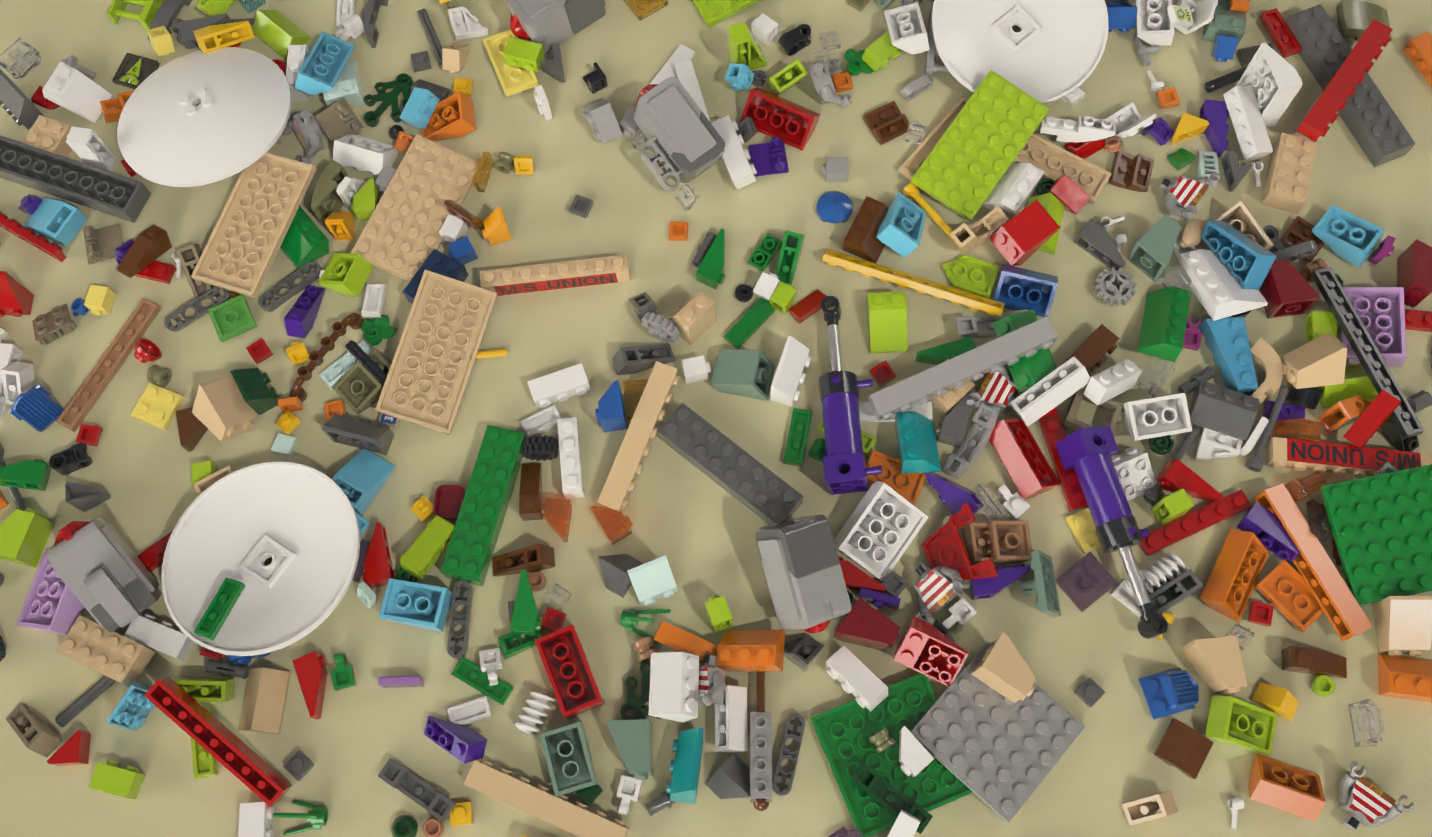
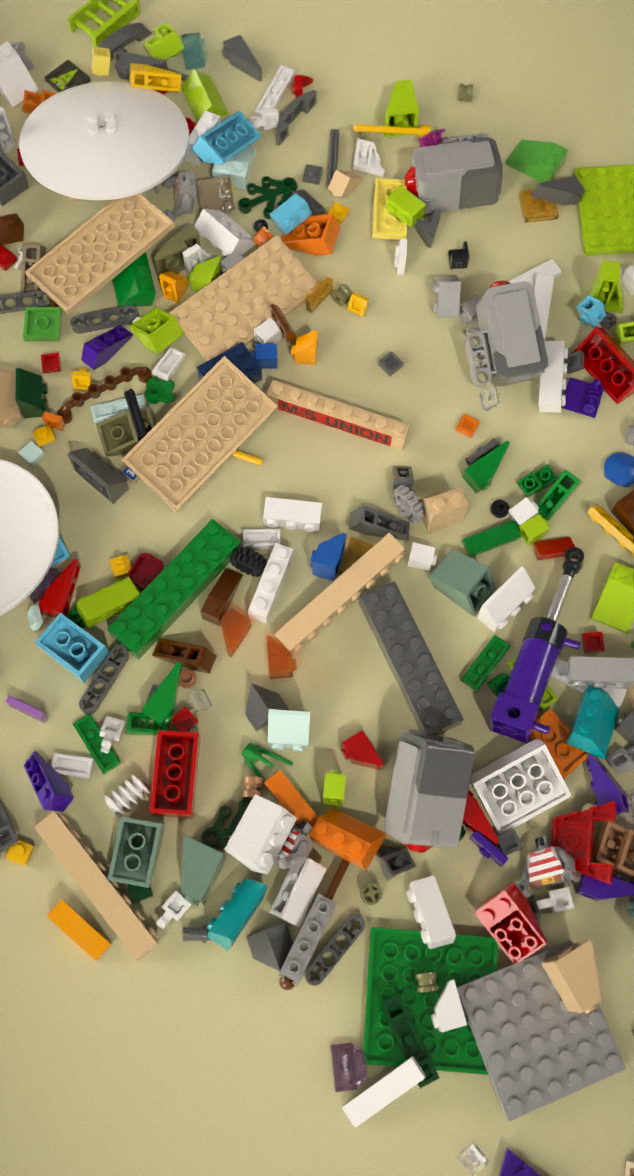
camera: 20 degrees right, 0 degrees up
(334, 408) = (90, 442): orange tile -> none
(363, 478) = (82, 515): medium azure slope -> none
(727, 569) = (361, 752): none -> red slope
(799, 688) = (372, 890): none -> olive wheel
(867, 628) = (464, 870): dark red slope -> none

